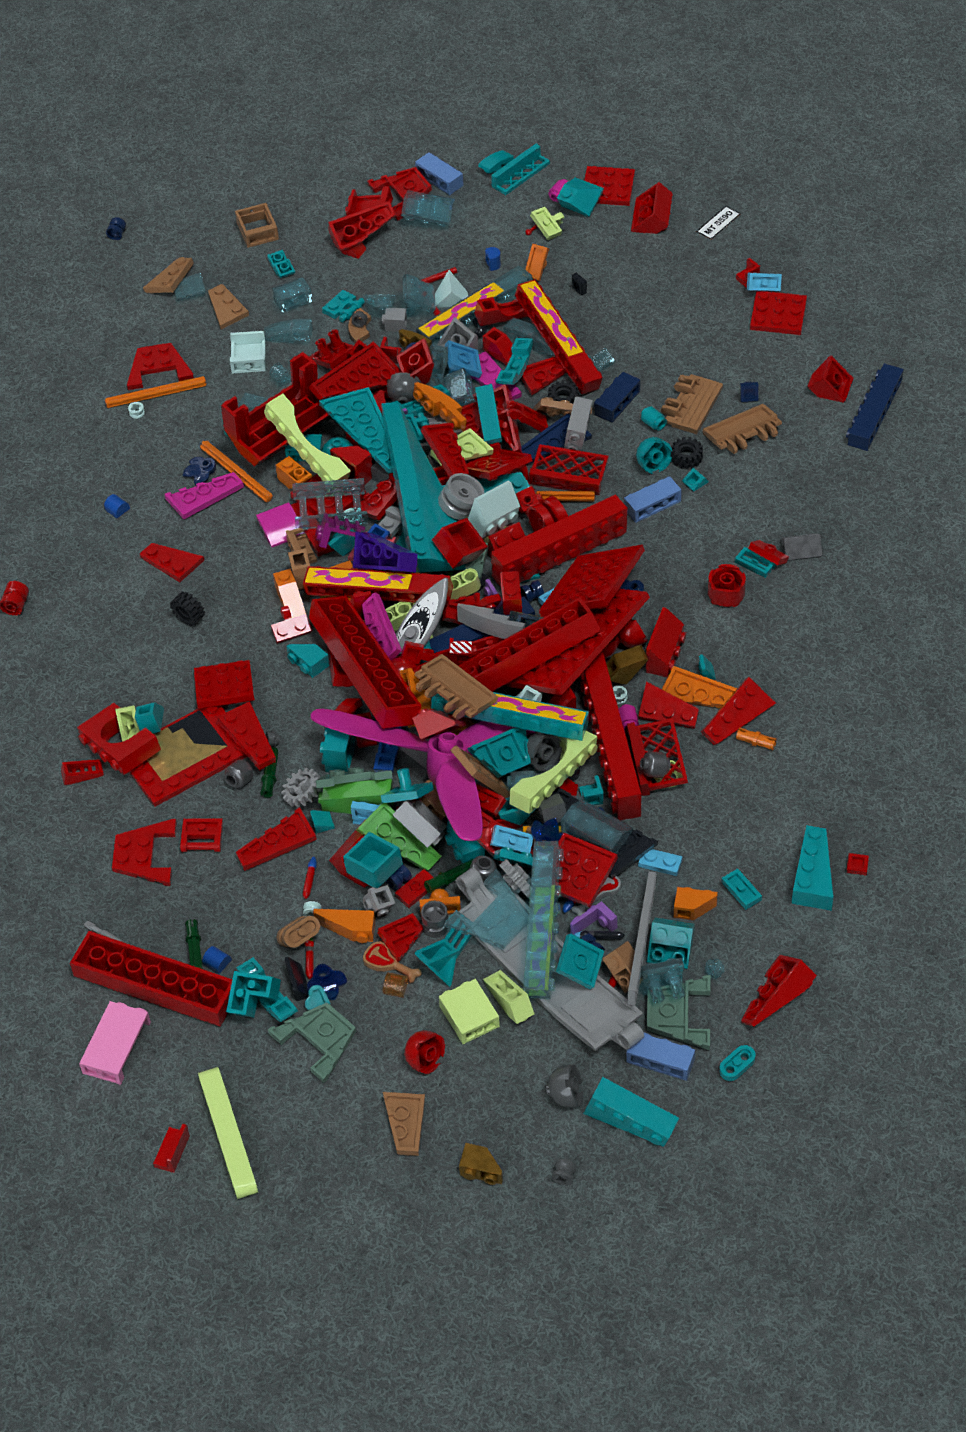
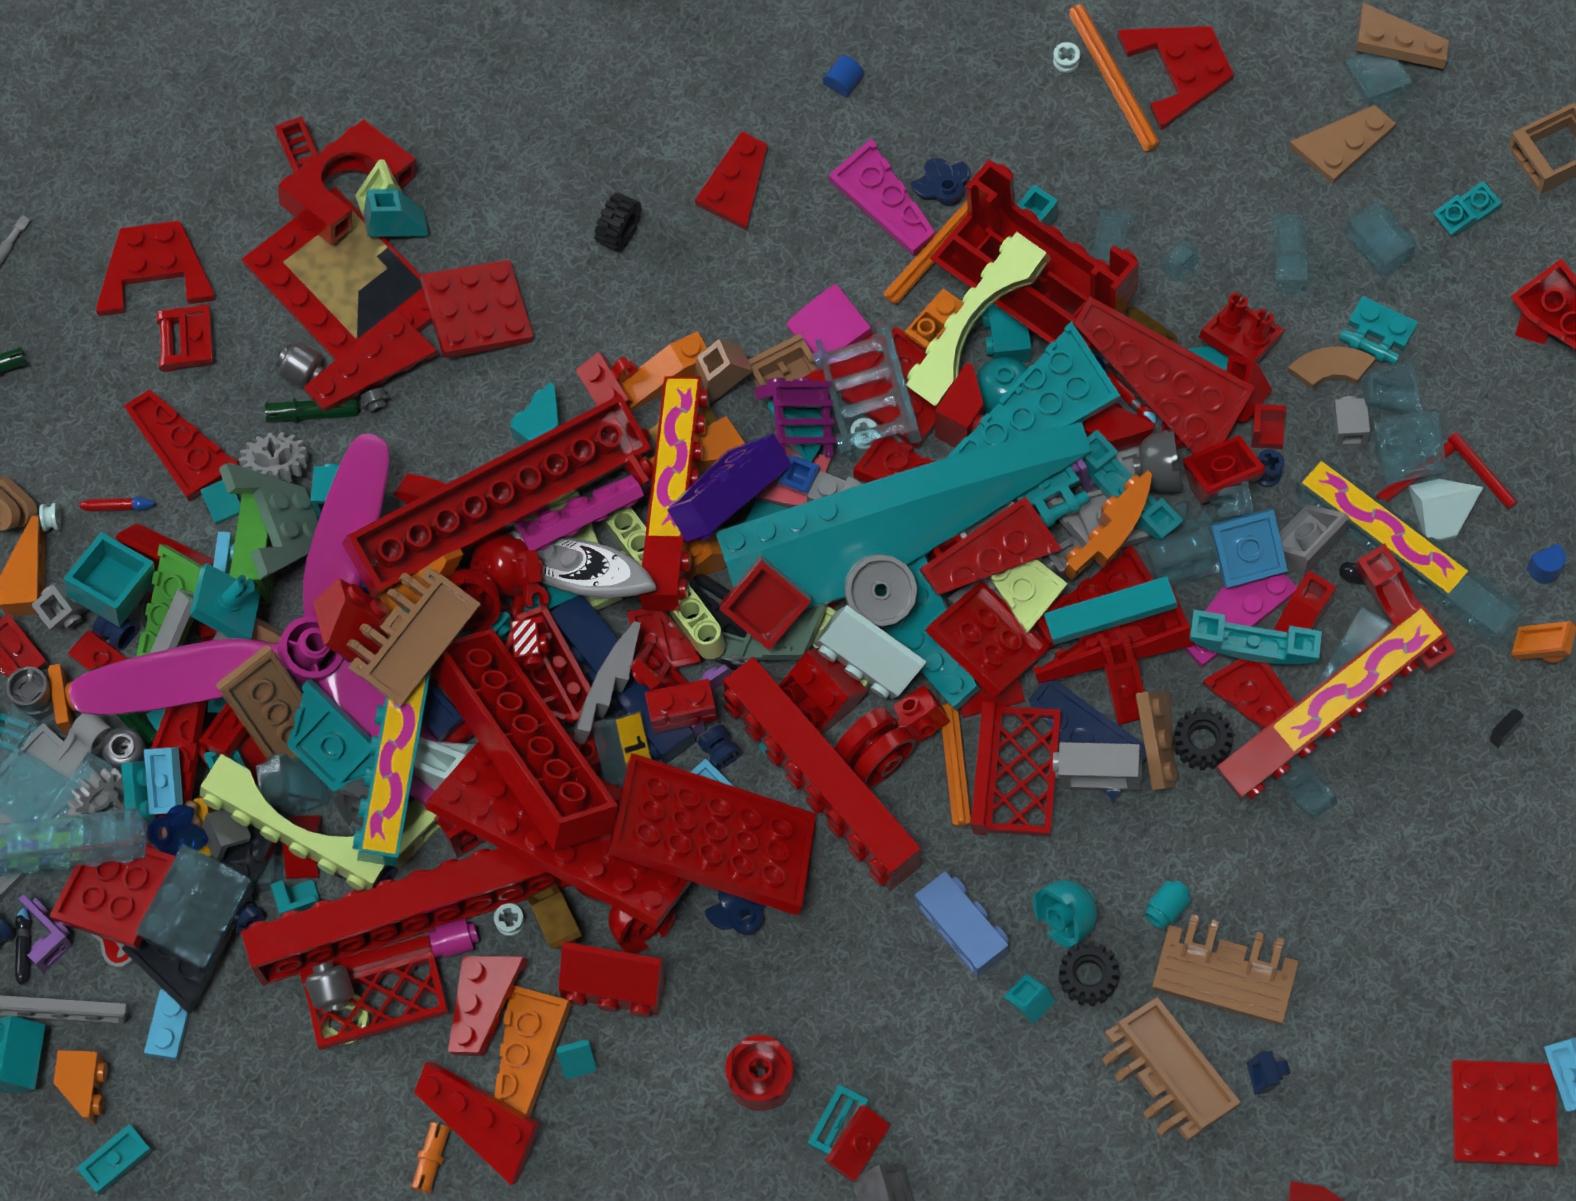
camera: 85 degrees right, 15 degrees up
(248, 352) = (1228, 199): light aqua panel -> none
(359, 322) = (1334, 360): dark grey plate -> none
(407, 337) = (1299, 462): pearl gold slope -> none
(617, 397) = (1212, 832): dark blue brick -> none

